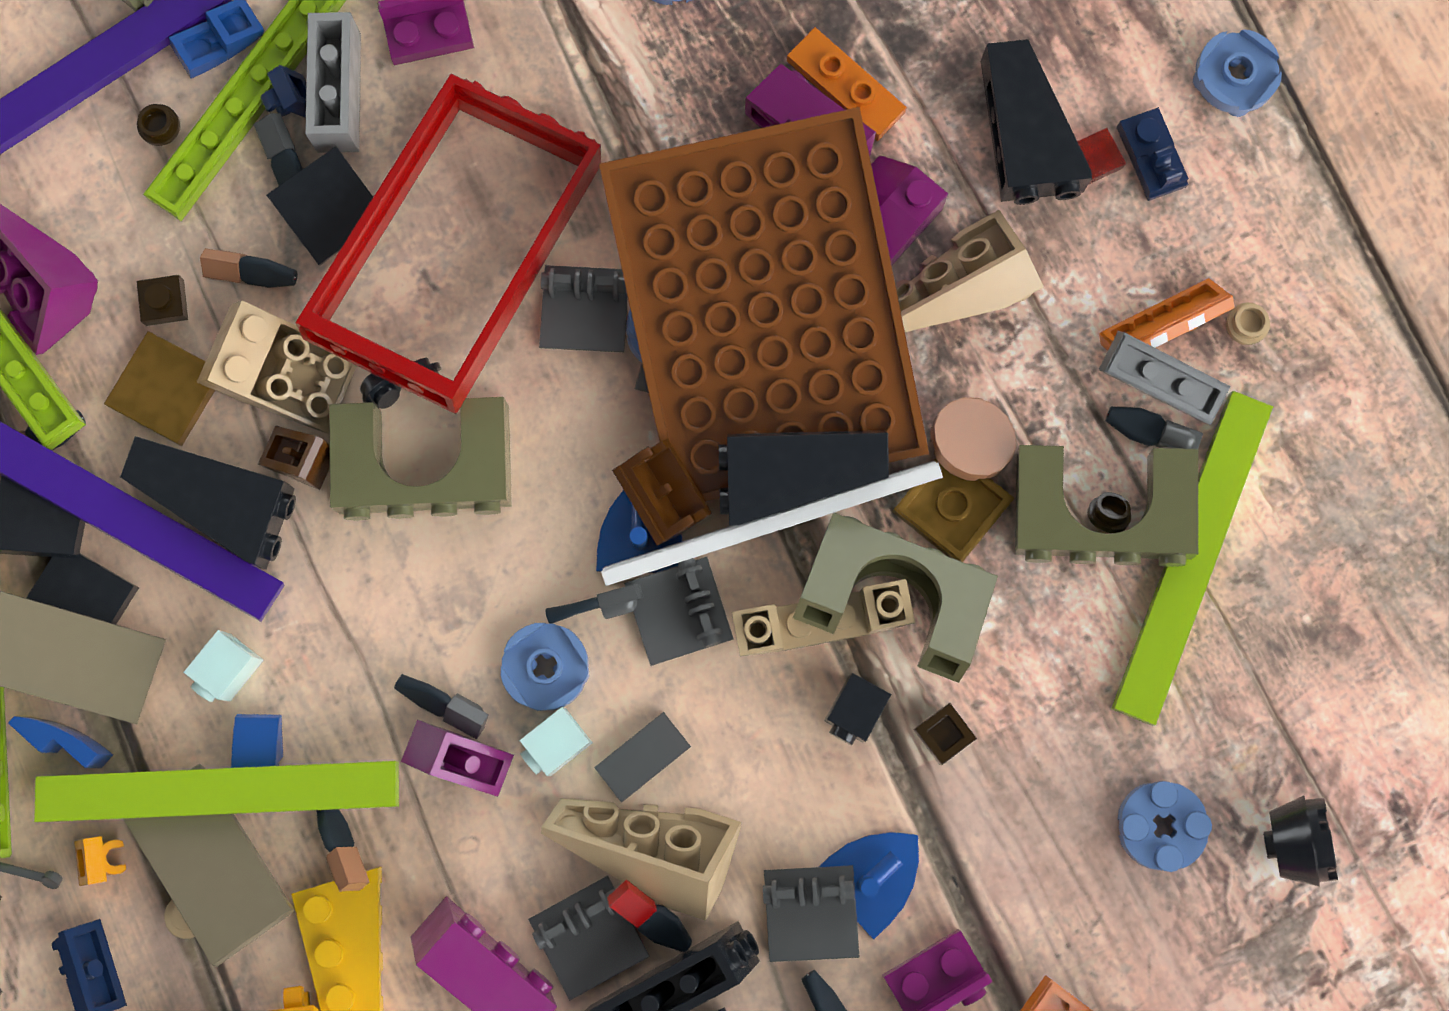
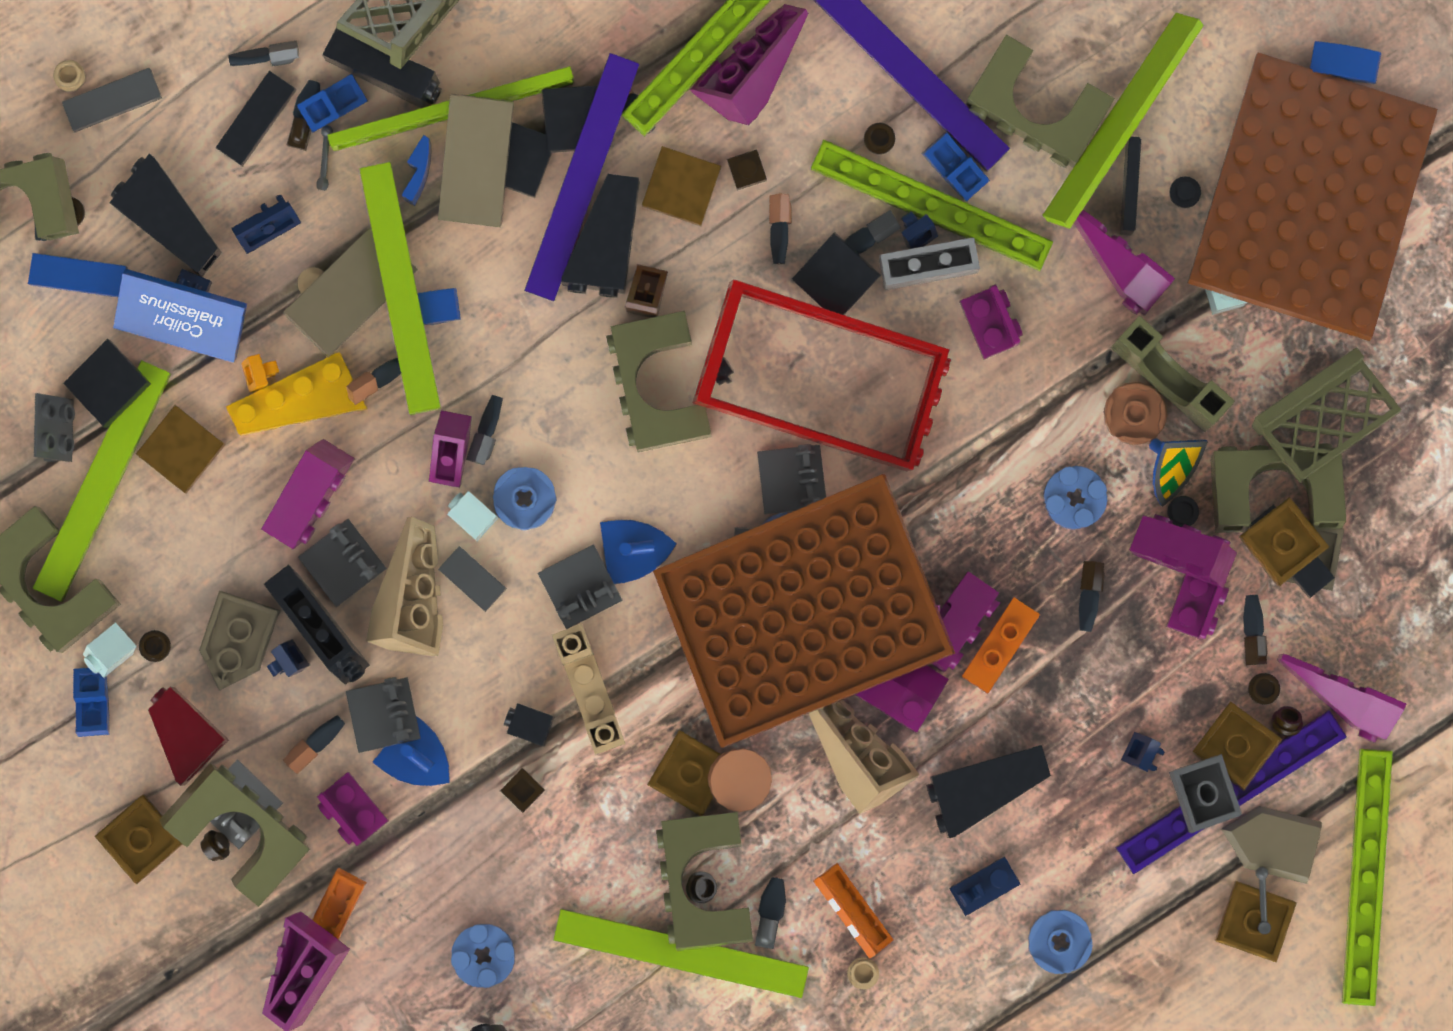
camera: 85 degrees right, 5 degrees up
(92, 861) = (340, 210): light orange tile -> none
(222, 667) = (486, 272): light aqua brick -> none
(274, 369) = (706, 263): tan slope -> none
(379, 391) = (701, 341): black plate -> none
(612, 604) = (576, 537): dark grey piece -> none
(652, 920) = (361, 602): piece -> none
(662, 492) = (660, 560): reddish brown hinge -> none
(739, 533) = (652, 642): white tile -> none
(796, 468) = (692, 653): black slope -> none
(953, 590) = (641, 705): olive arch -> none
(1101, 154) = (975, 843): clear red tile -> none
(1164, 377) = (807, 913): tile -> none

